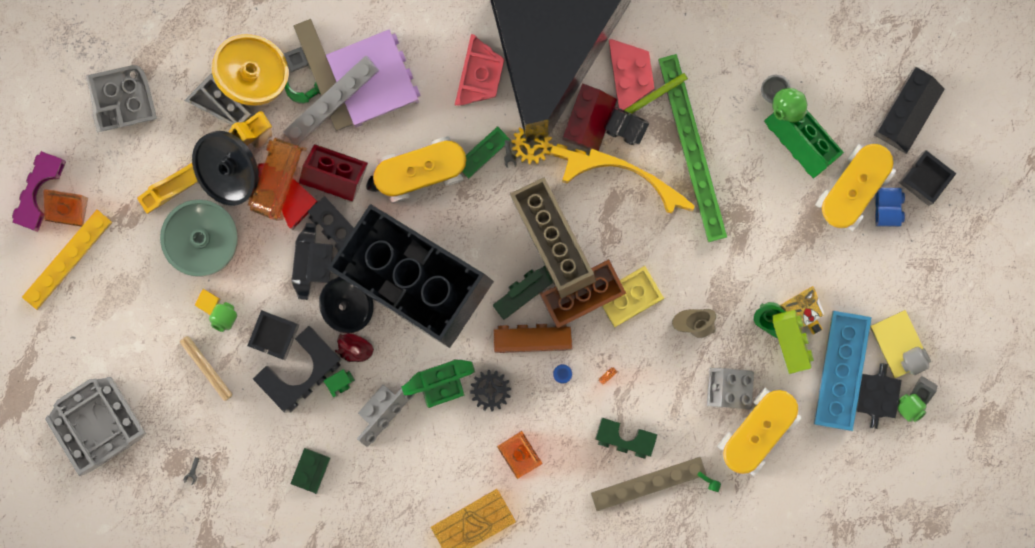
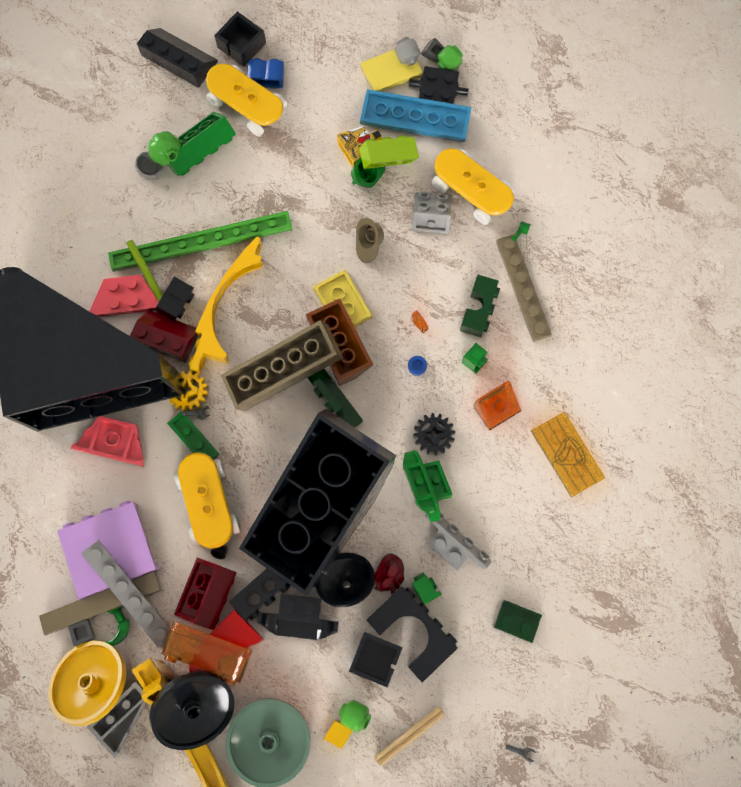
camera: 85 degrees left, 10 degrees down
(532, 339) = (383, 391): dark orange slope -> none
(569, 432) = (475, 358): none -> green brick

